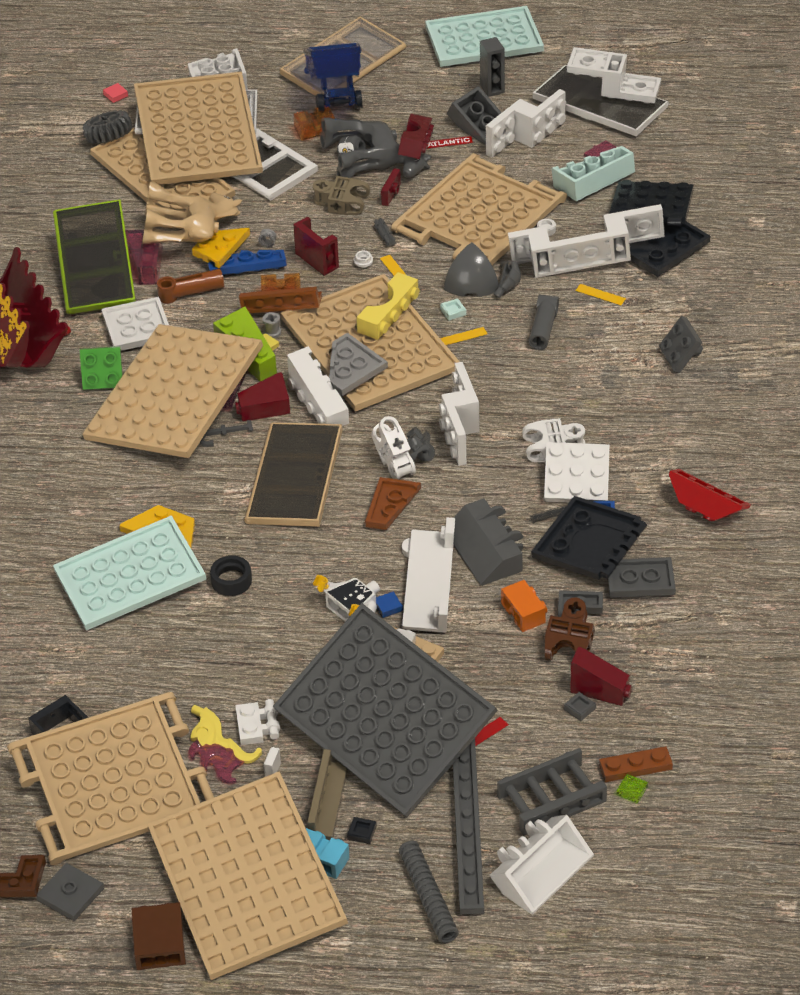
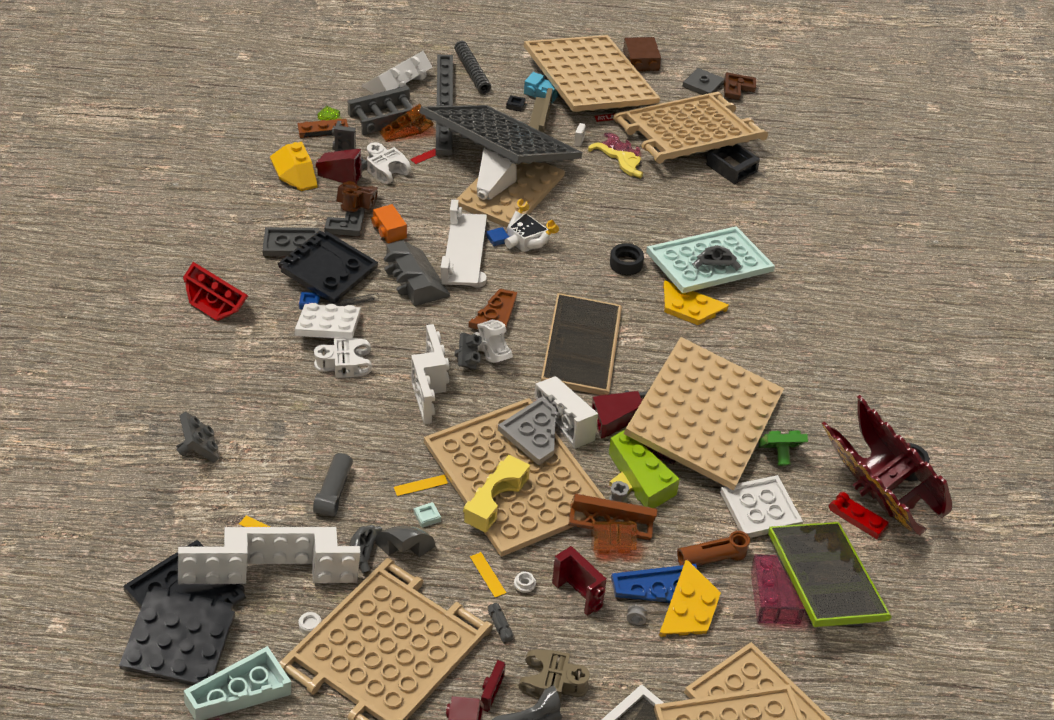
camera: 175 degrees right, 0 degrees up
(125, 550) = (717, 256): none -> dark grey piece
(195, 220) = (717, 618): tan animal -> none
(249, 722) = (598, 165): white plate -> none
(508, 763) = (407, 125): none -> clear orange slope
(540, 700) = (384, 162): none -> white piece
(599, 711) = (344, 137): none -> dark grey bracket
(664, 693) = (294, 166): none -> yellow wedge

